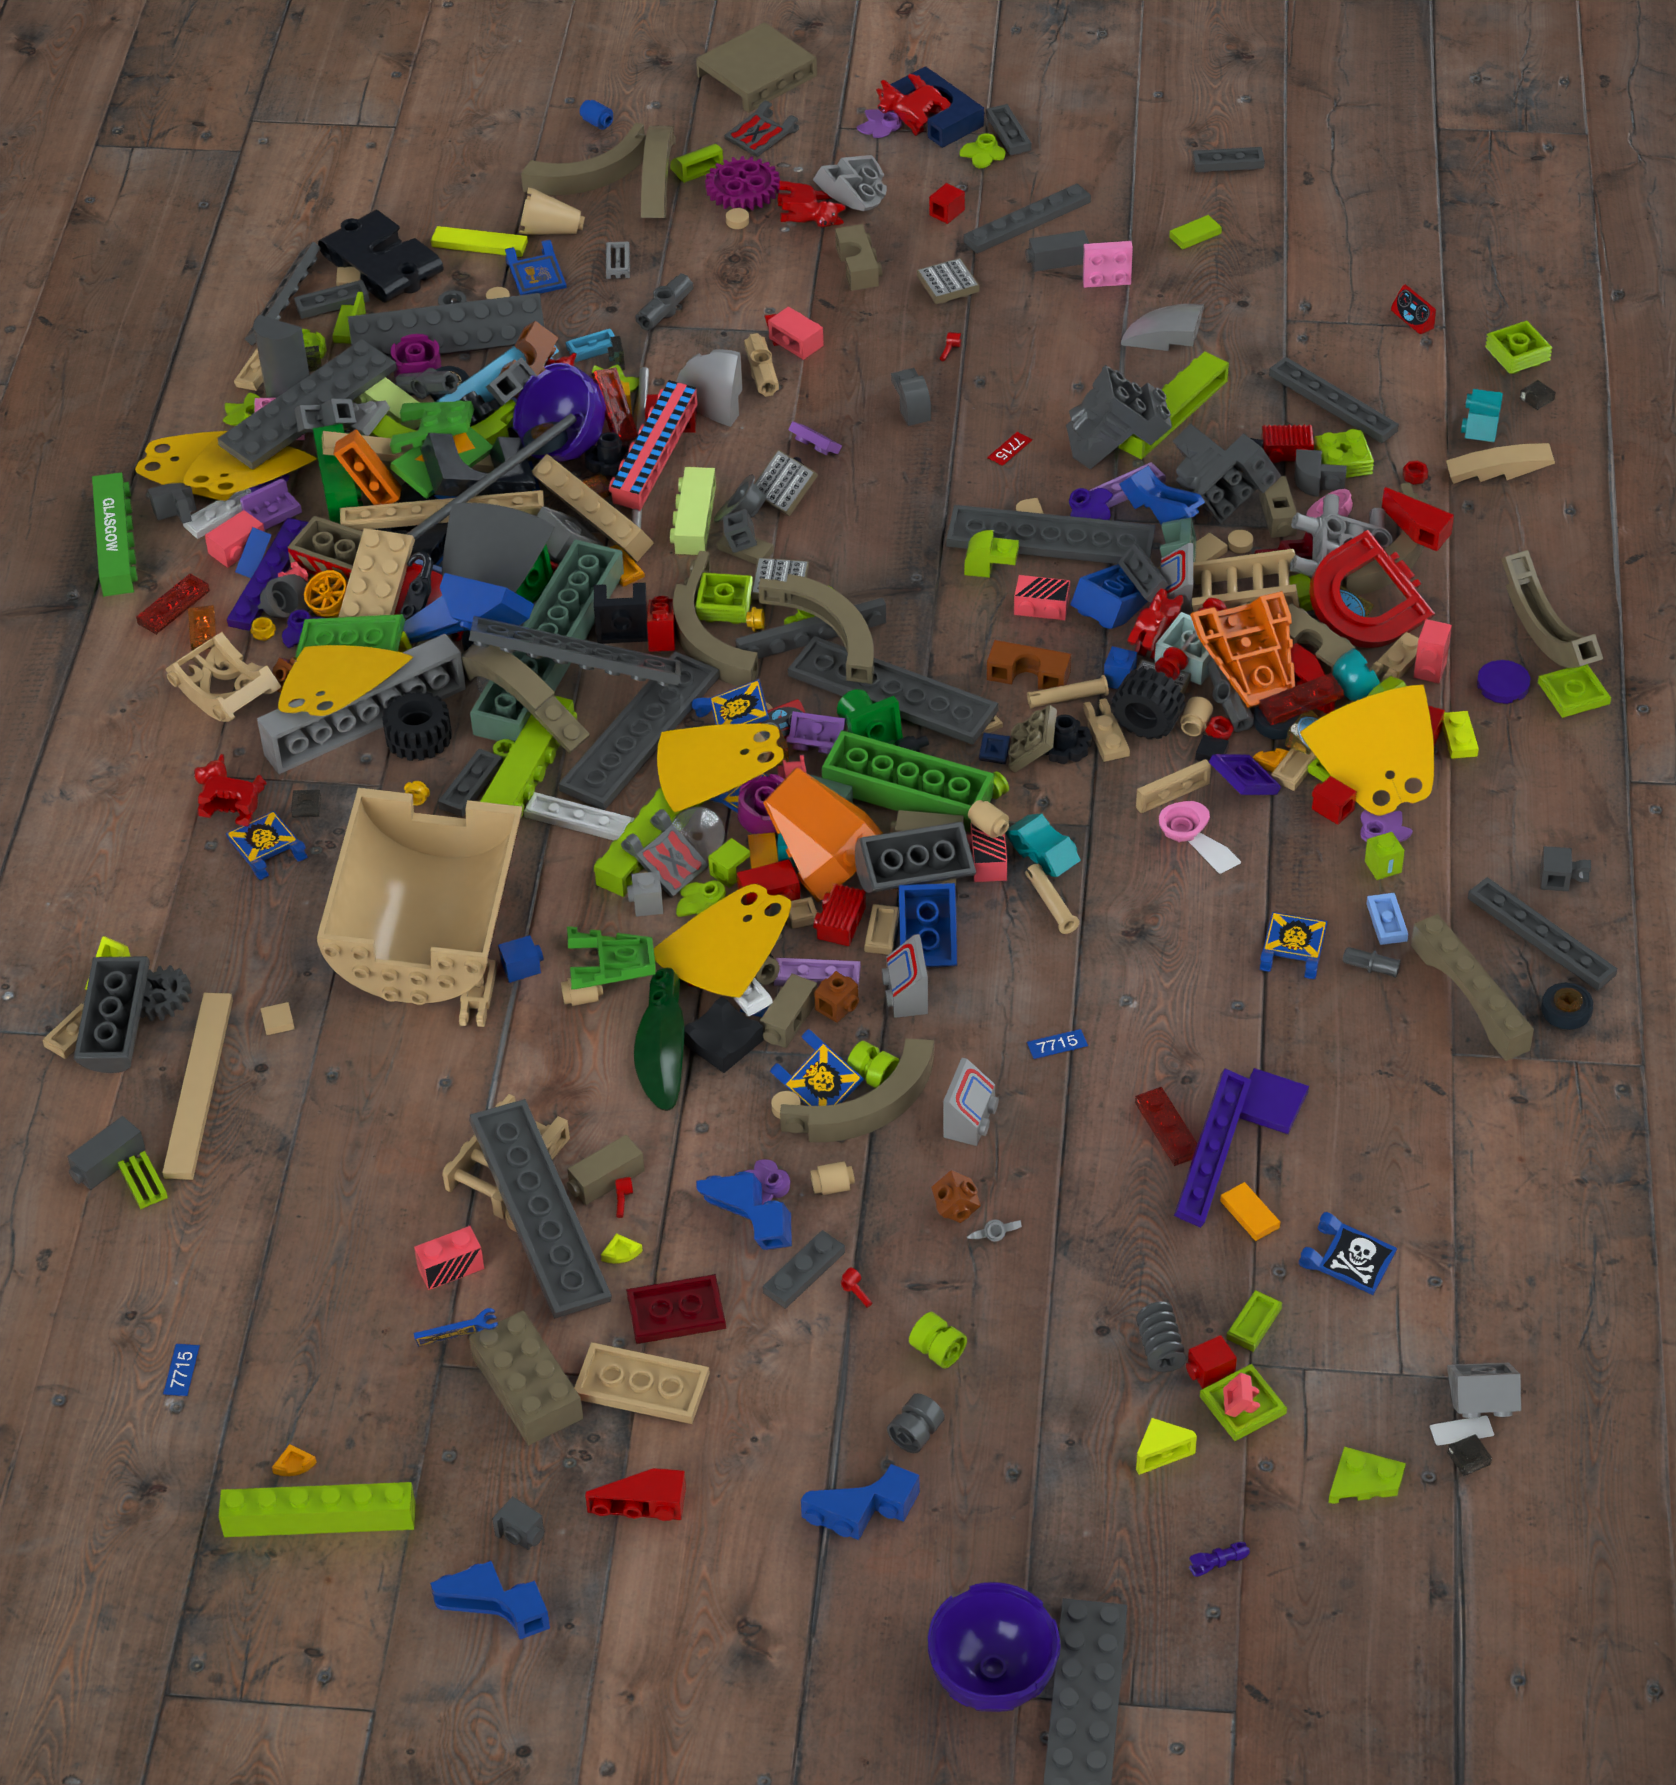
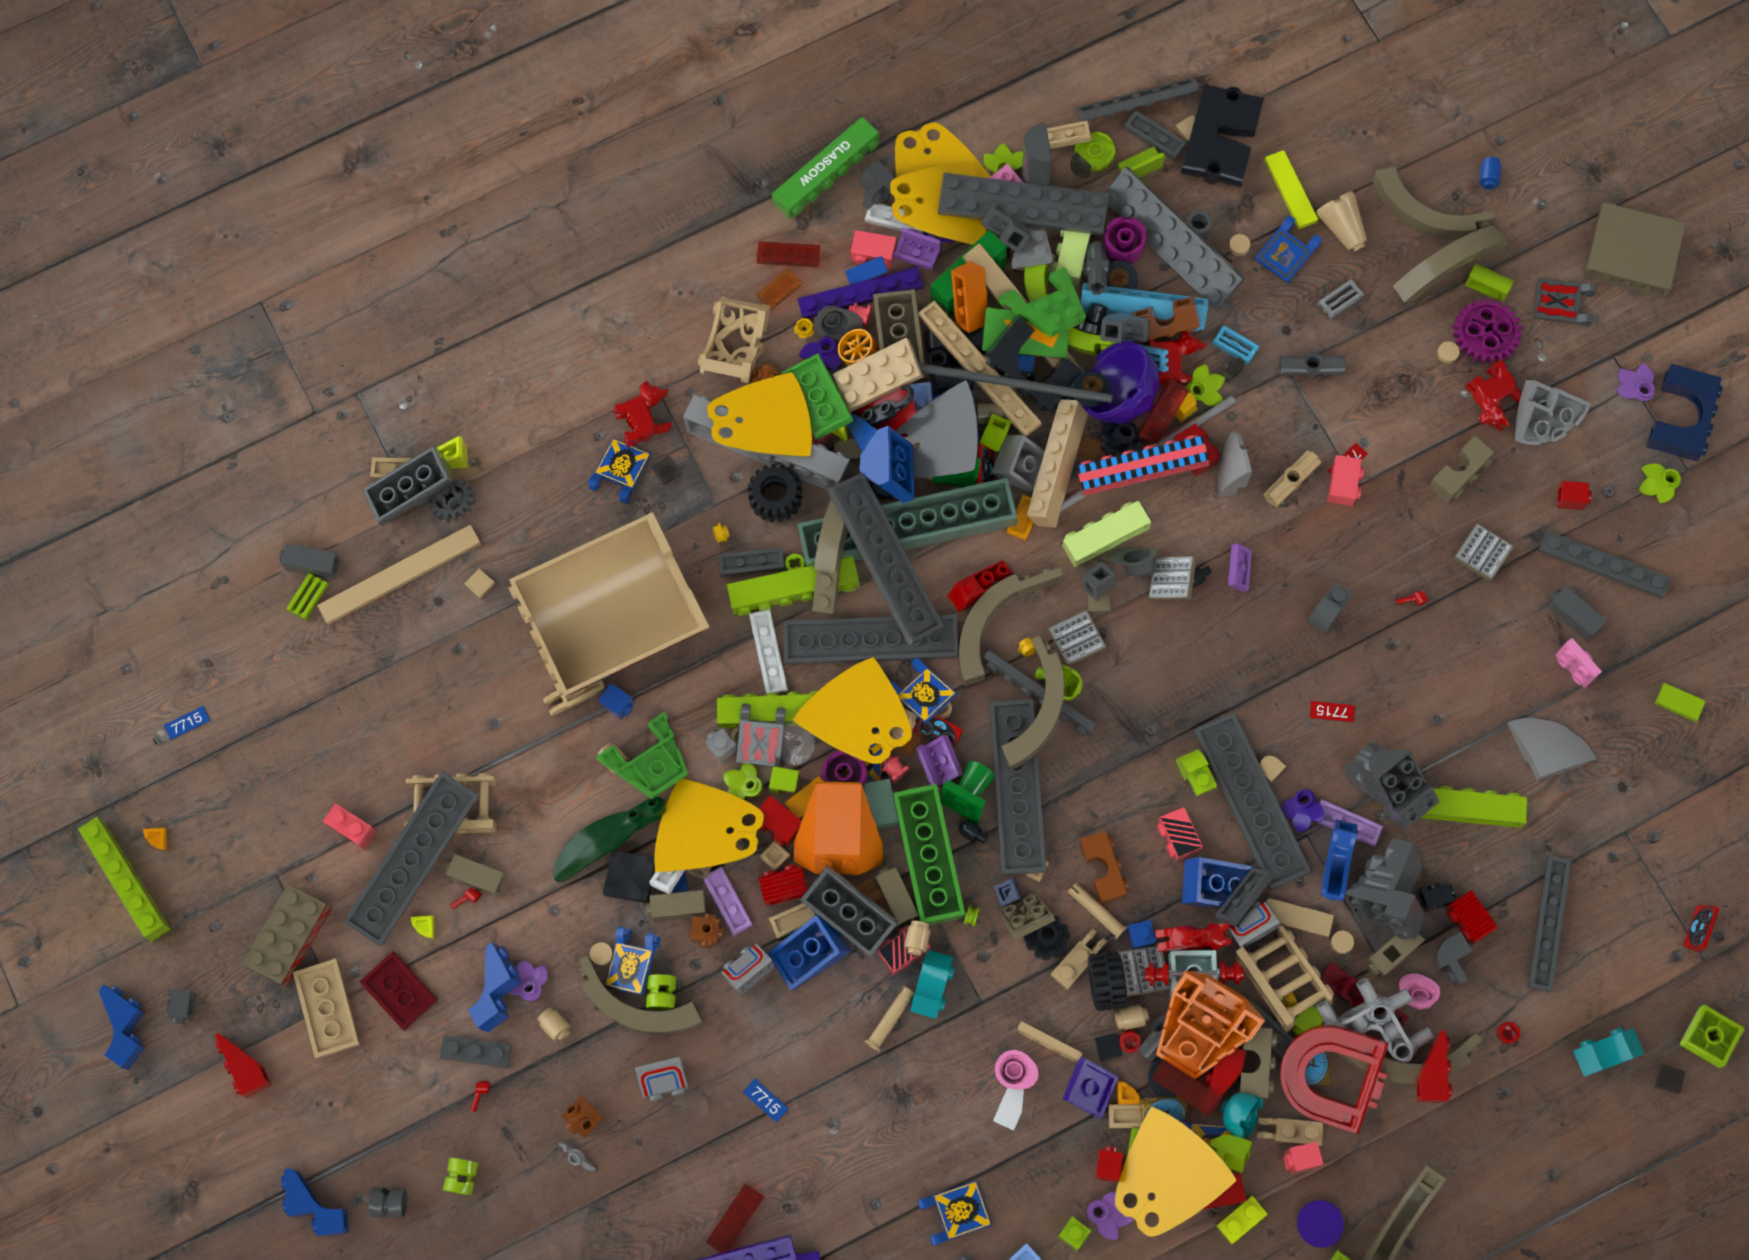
camera: 60 degrees right, 25 degrees up
(457, 1329) = (291, 871): blue flag -> none
(621, 618) = (950, 550): black panel -> none
(724, 597) = (1035, 600): lime brick -> none
(914, 106) = (1667, 400): red animal -> none
(1008, 129) = (1699, 485): dark grey plate -> none
(1177, 534) = (1298, 904): sand green panel -> none
(1346, 449) = (1504, 965): lime brick -> none
(1506, 460) = (1562, 1094): tan slope -> none

